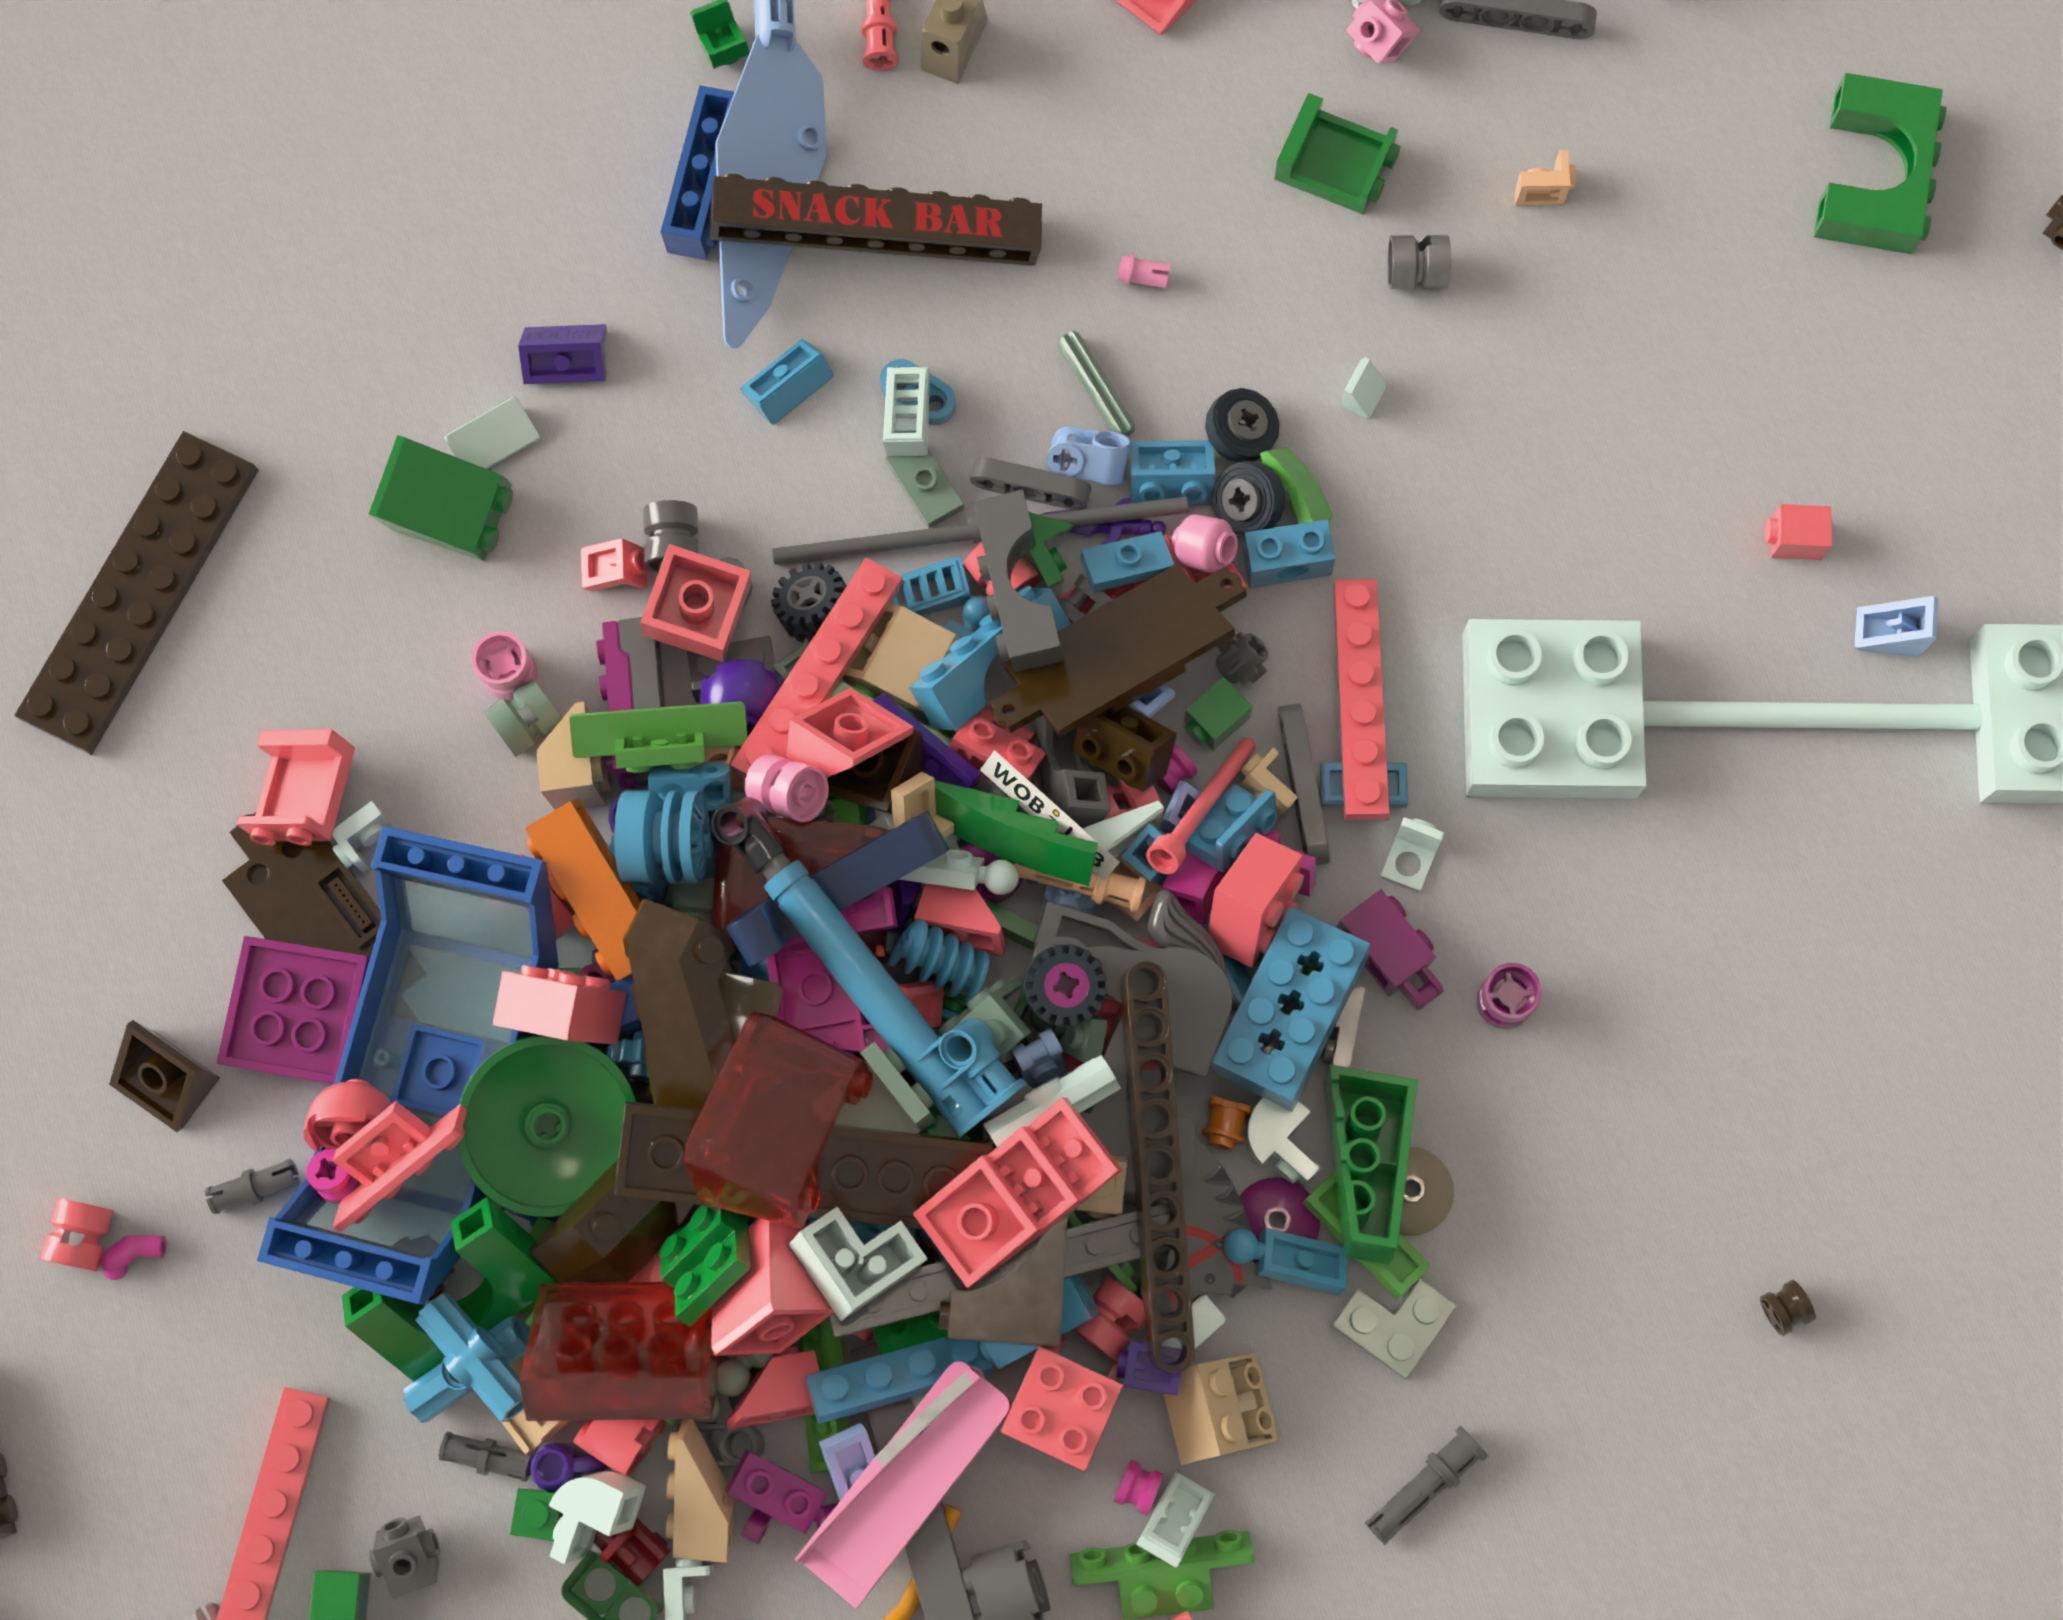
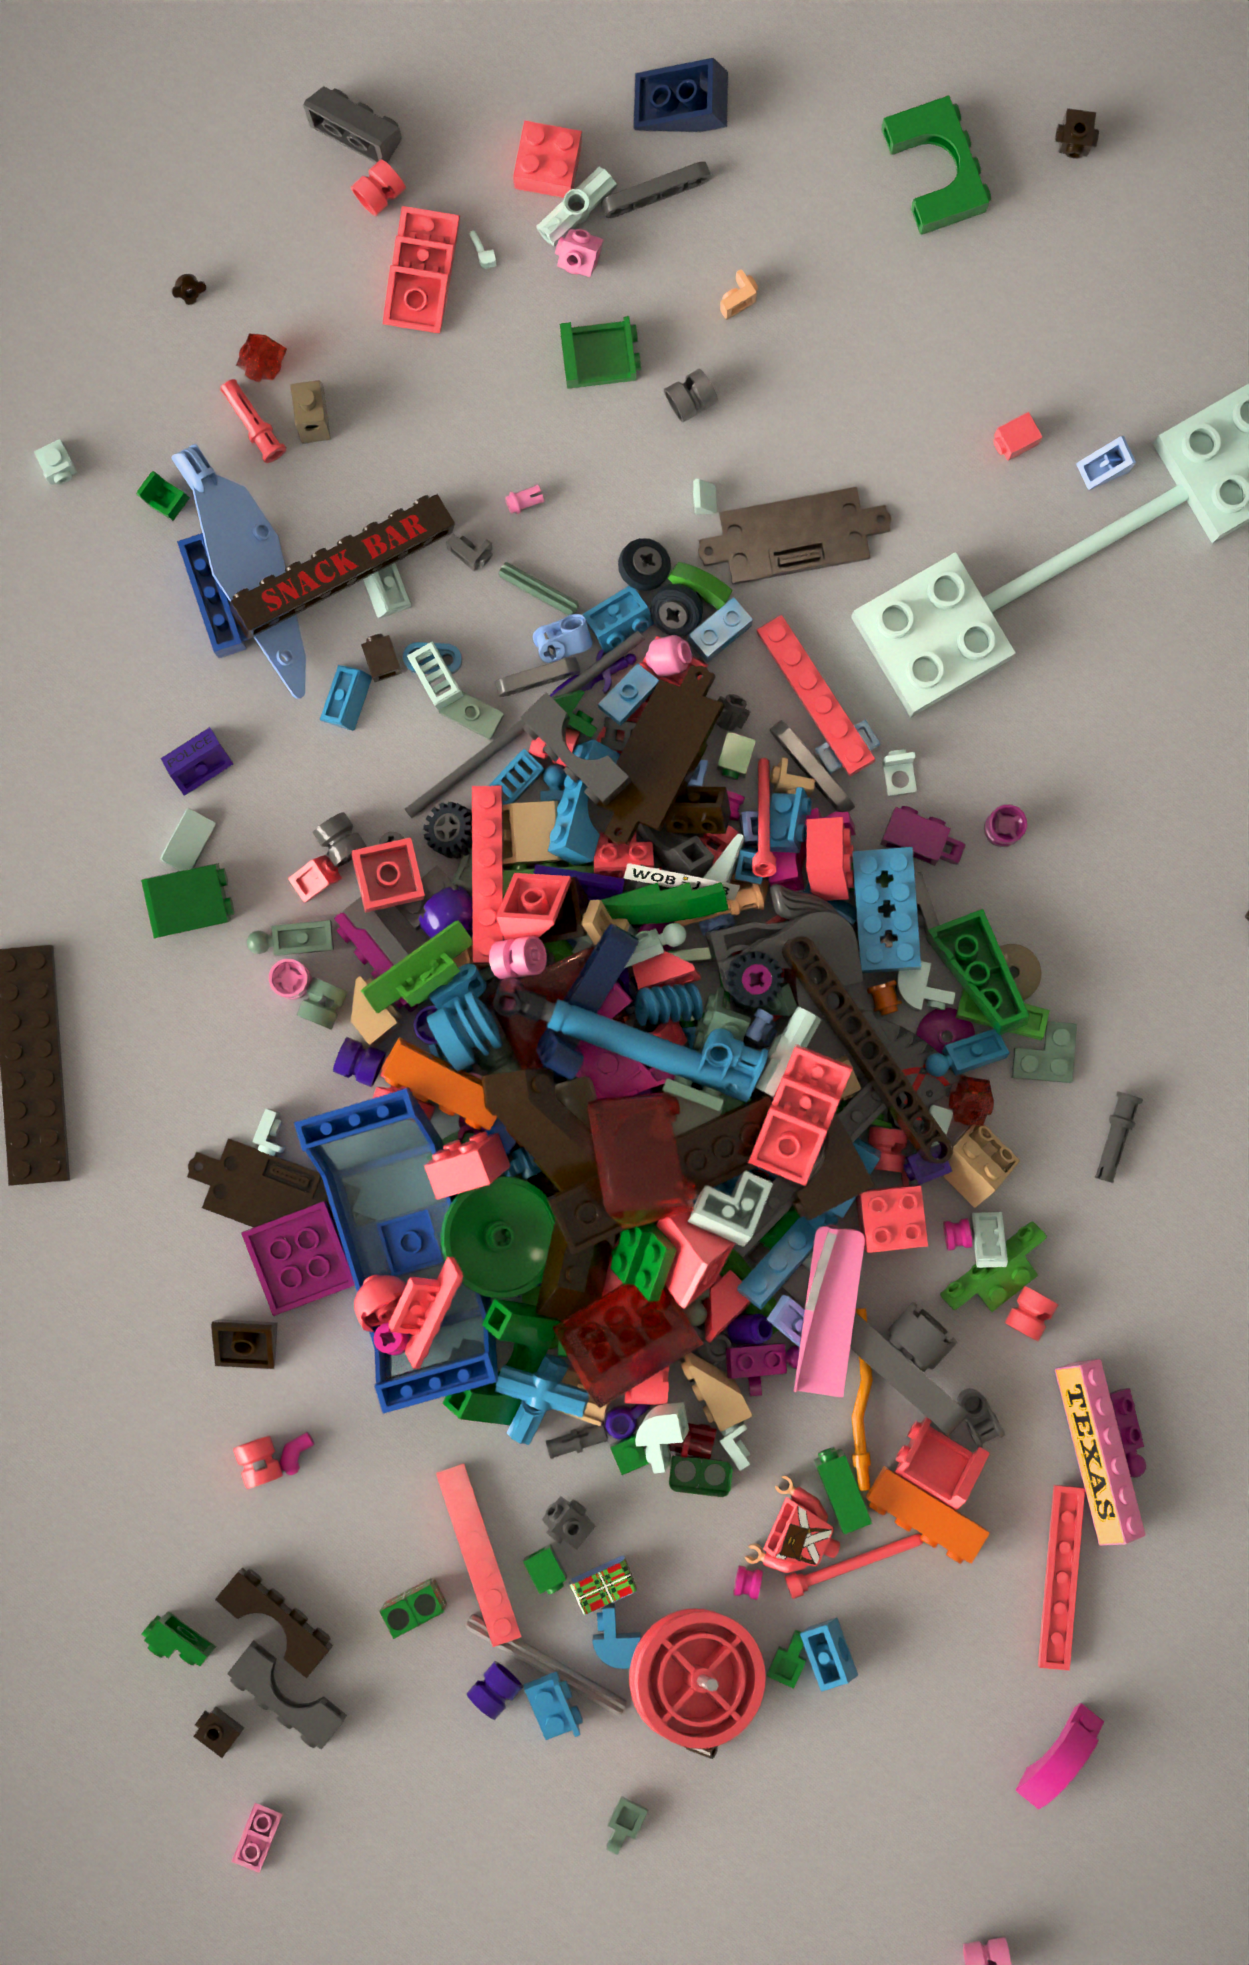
camera: 30 degrees left, 10 degrees up
(182, 1540) = (425, 1587): none -> green piece
(252, 1186) = (341, 1373): dark grey pin -> none
(300, 786) = (216, 1126): coral panel -> none
(515, 807) = (359, 1062): none -> dark purple wheel
(542, 623) = (293, 938): none -> sand green plate
(793, 1446) = (750, 1329): none -> dark purple brick
(857, 356) = (381, 657): none -> dark brown brick
(914, 287) = (387, 591): none -> light aqua slope
(1037, 295) = (464, 550): none -> dark grey bracket
(1259, 1321) = (971, 1101): none -> clear red brick
(1449, 497) = (794, 535): none -> dark brown piece

